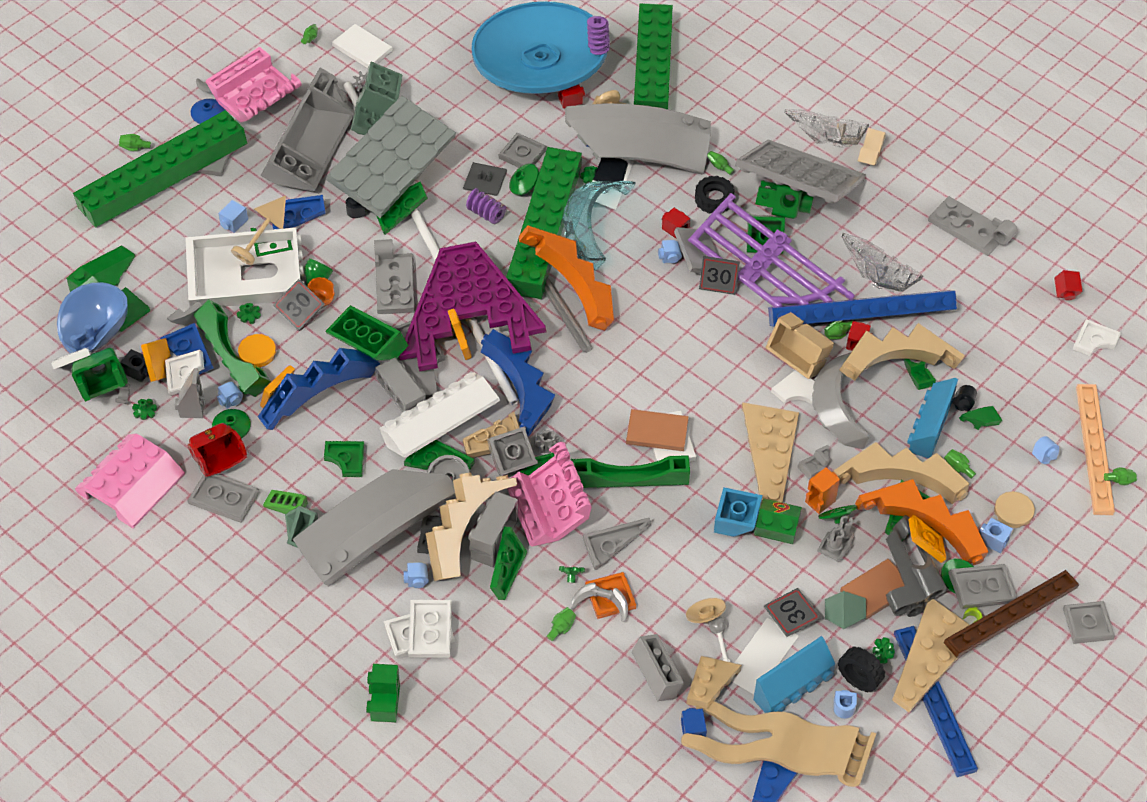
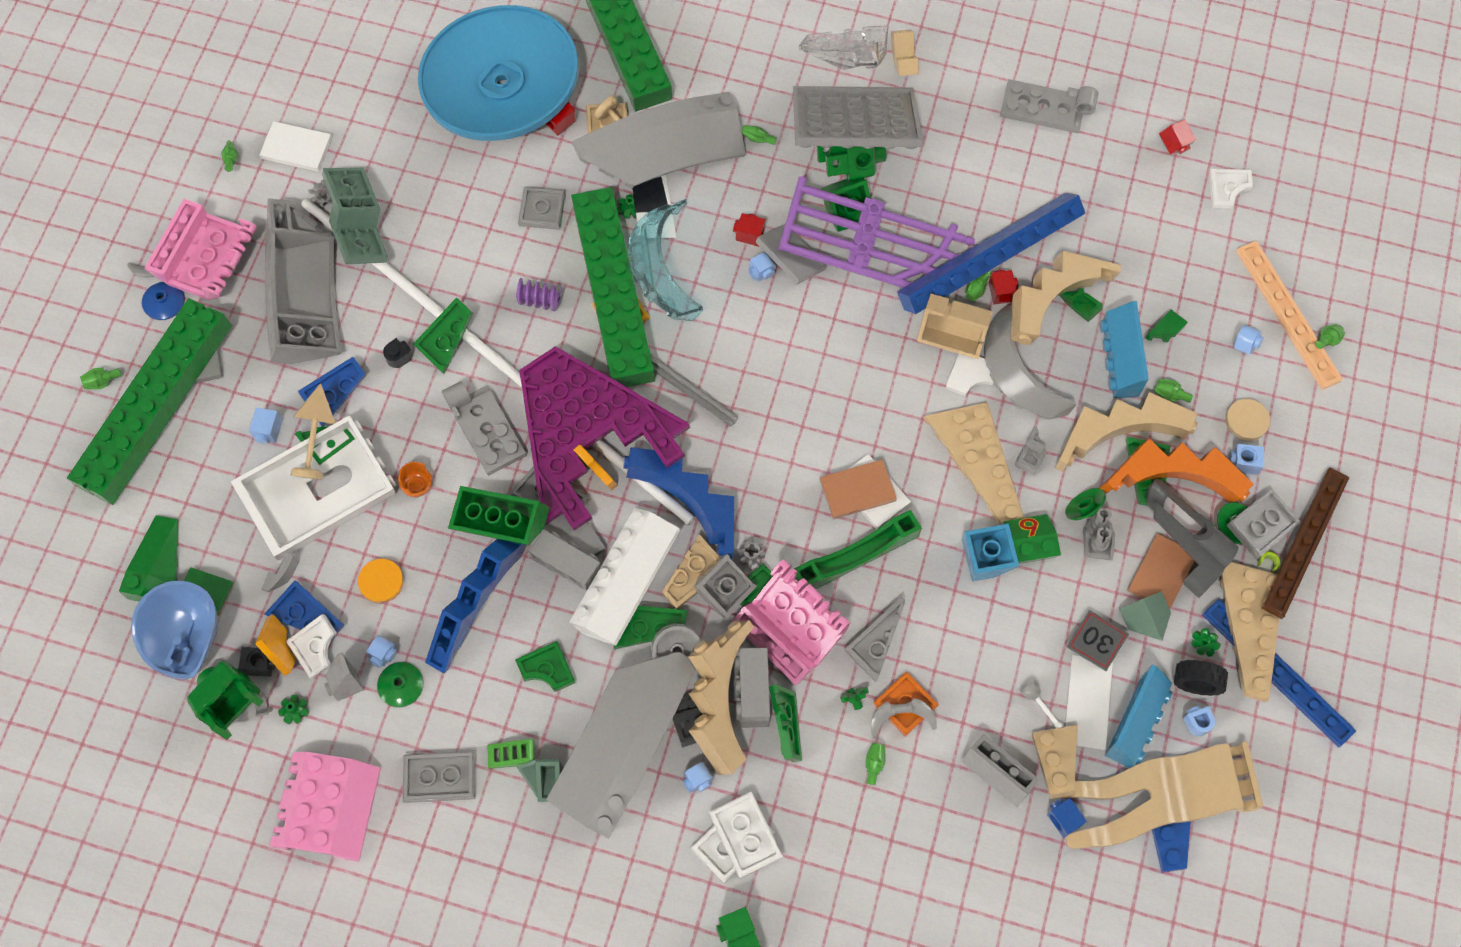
camera: 25 degrees left, 15 degrees up
(71, 357) = (177, 691): white tile -> none
(214, 322) = (317, 571): green arch -> none
(217, 449) = (405, 727): red piece -> none
(249, 313) = (346, 538): green plant -> none
(270, 389) = (431, 621): light orange tile -> none
(298, 304) = (399, 506): piece -> none
(316, 269) = (396, 456): green helmet -> none
(390, 156) = (410, 281): light grey piece -> none
(485, 178) = (517, 258): dark grey piece -> none
(523, 179) = (569, 243): green dish -> none
(562, 255) = (659, 326): orange arch -> none
(598, 35) = (562, 37): medium lavender piece -> none
(705, 610) = (1007, 674): tan dish -> none
(712, 183) = (774, 162): black tyre -> none
(719, 275) = (829, 276): dark grey piece -> none
(822, 490) = (1061, 487): orange brick -> none
(879, 267) = (983, 194): clear wedge -> none
(927, 538) = (1190, 497): light orange tile -> none
(965, 398) = (1146, 312): black plate -> none
(1088, 622) = (1377, 515): light grey tile -> none

